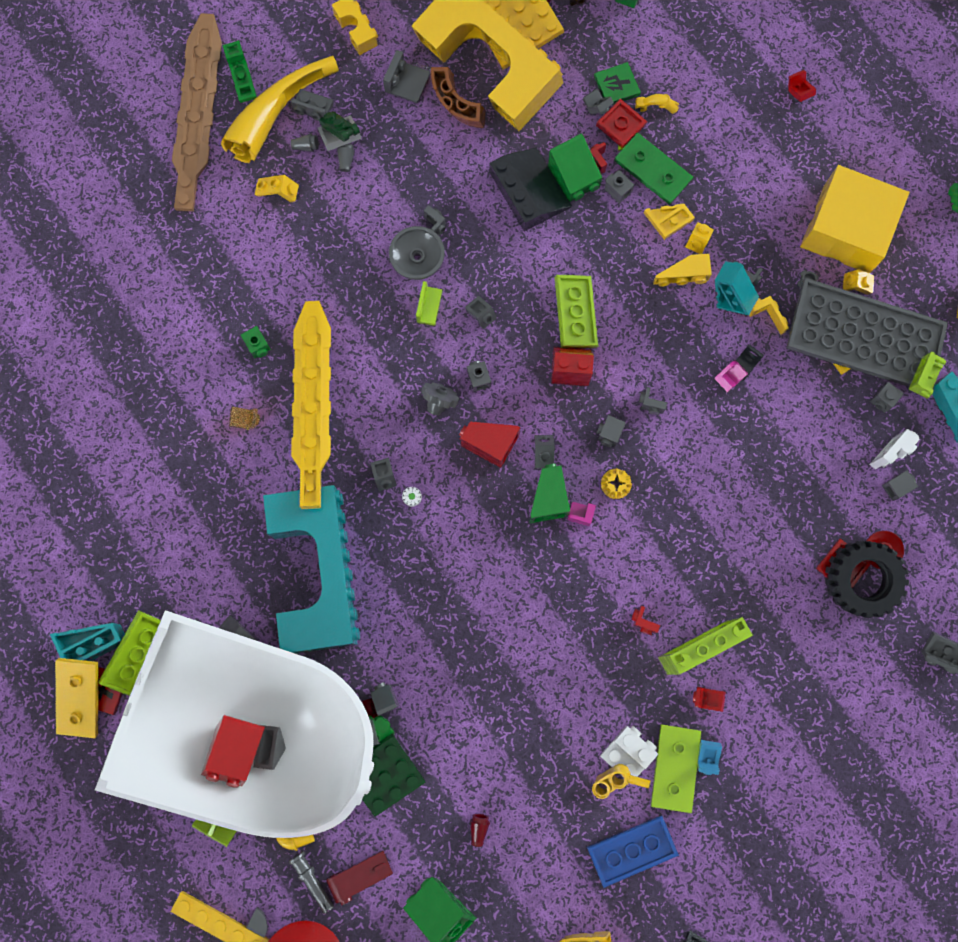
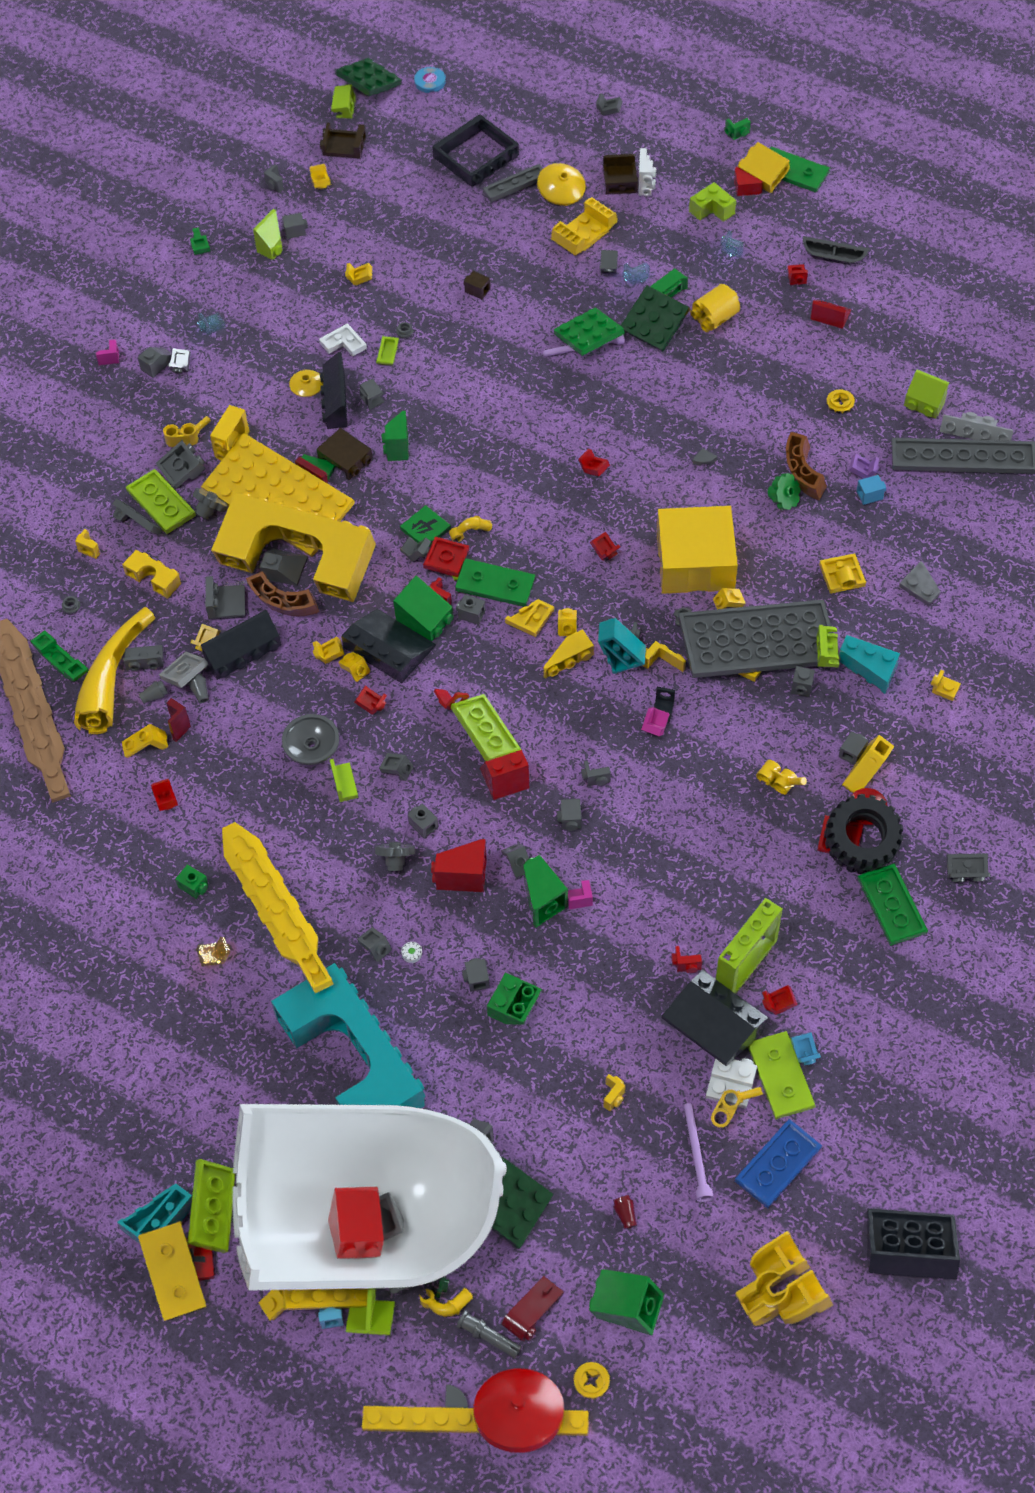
camera: 25 degrees left, 20 degrees down
(269, 248) = (164, 795): none -> red bracket
(273, 20) = (70, 600): none -> dark grey plate
(310, 184) = (179, 720): none -> dark red panel
(338, 126) = (181, 662): dark green plate -> none
(372, 110) = (204, 634): none -> yellow bracket
(398, 132) = (241, 645): none -> black slope
(436, 218) = (312, 704): dark grey bracket -> none
(456, 546) = (476, 974): none -> dark grey brick
(472, 67) = (283, 566): none -> dark grey slope
(473, 171) = (329, 650): none -> yellow bracket
(476, 588) = (512, 1000): none -> green slope
(487, 237) = (370, 700): none -> red bracket
(490, 196) = (355, 665): none -> yellow bracket
(520, 720) = (614, 1097): none -> yellow bracket
(555, 268) = (445, 698): none -> red bracket
(555, 843) = (703, 1192): none -> lavender piece
(610, 490) = (594, 864): yellow gear -> none
(642, 693) = (715, 1018): none -> black slope
(770, 177) = (604, 546): none -> red bracket
(817, 486) = (781, 781): none -> yellow beam
(857, 655) = (892, 904): none -> green plate
(897, 448) = (834, 718): white plate -> none
(905, 509) = (868, 764): none -> yellow slope
(907, 125) = (704, 457): none -> dark grey tile

